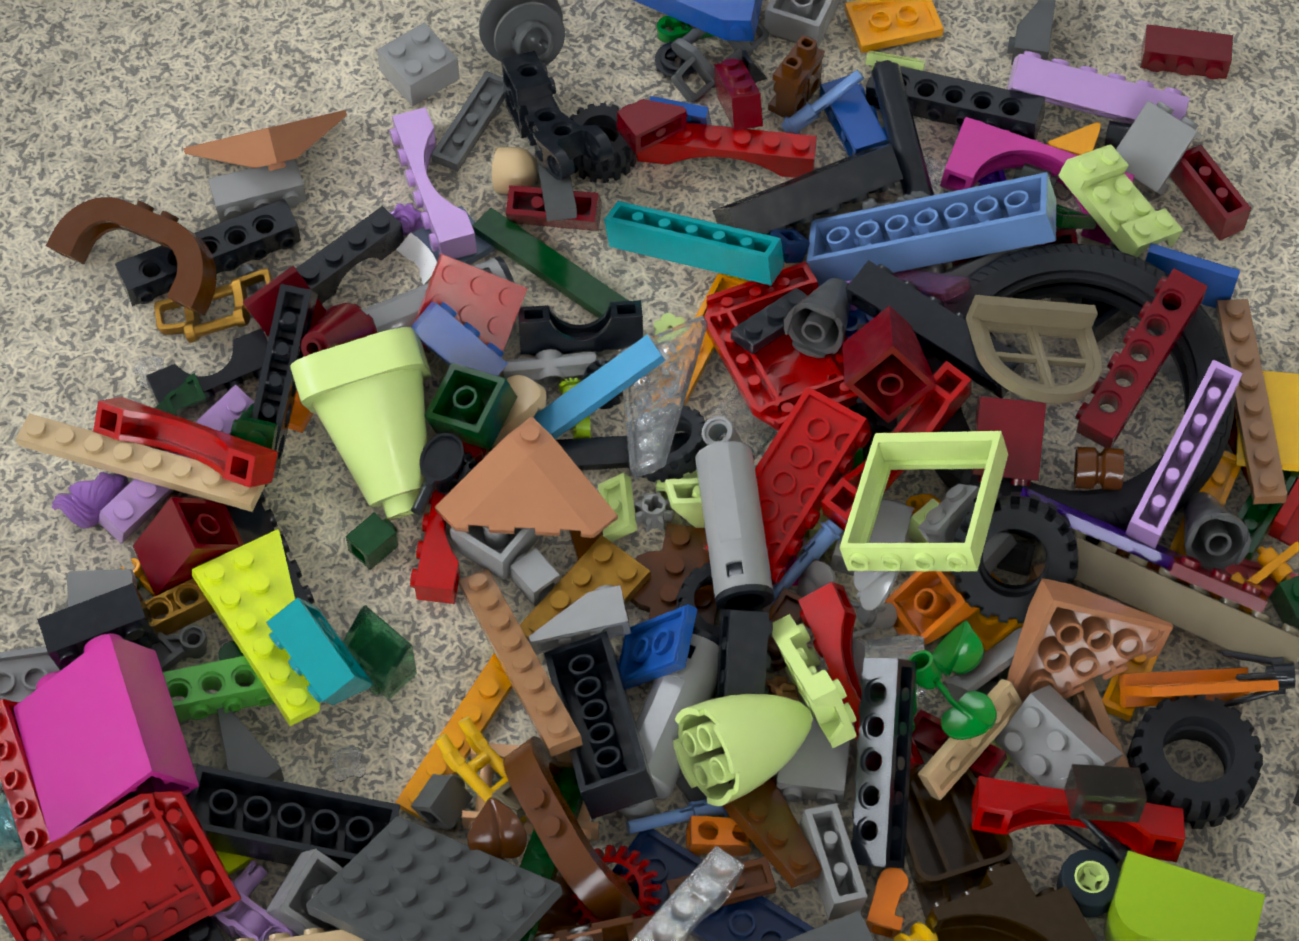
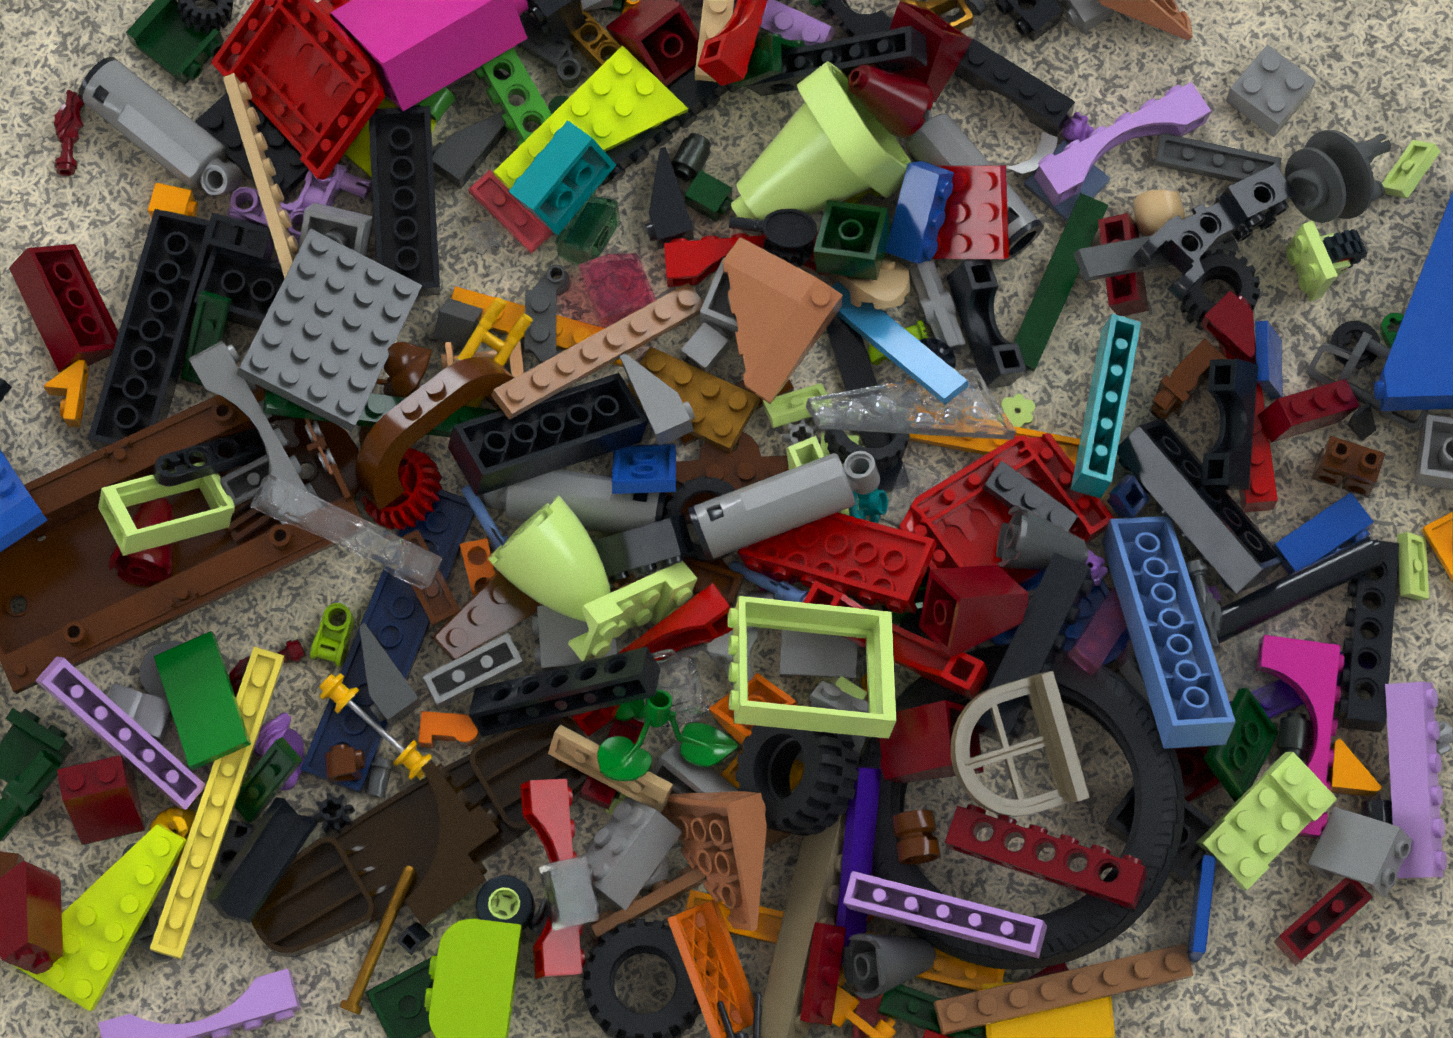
camera: 80 degrees right, 15 degrees up
(324, 549) = (691, 156): none -> pearl dark grey brick
(326, 734) = (509, 212): none -> coral tile
(371, 580) = (667, 208): none -> black slope
(444, 714) = (542, 308): none -> dark grey plate
(446, 648) = (616, 286): none -> clear pink slope
(594, 60) = (1322, 257): none -> yellowish green plate
(682, 180) = (1178, 391): none -> reddish brown hips
(743, 144) = (1234, 390): none -> black arch
(811, 111) = (1300, 478): medium blue pin -> none

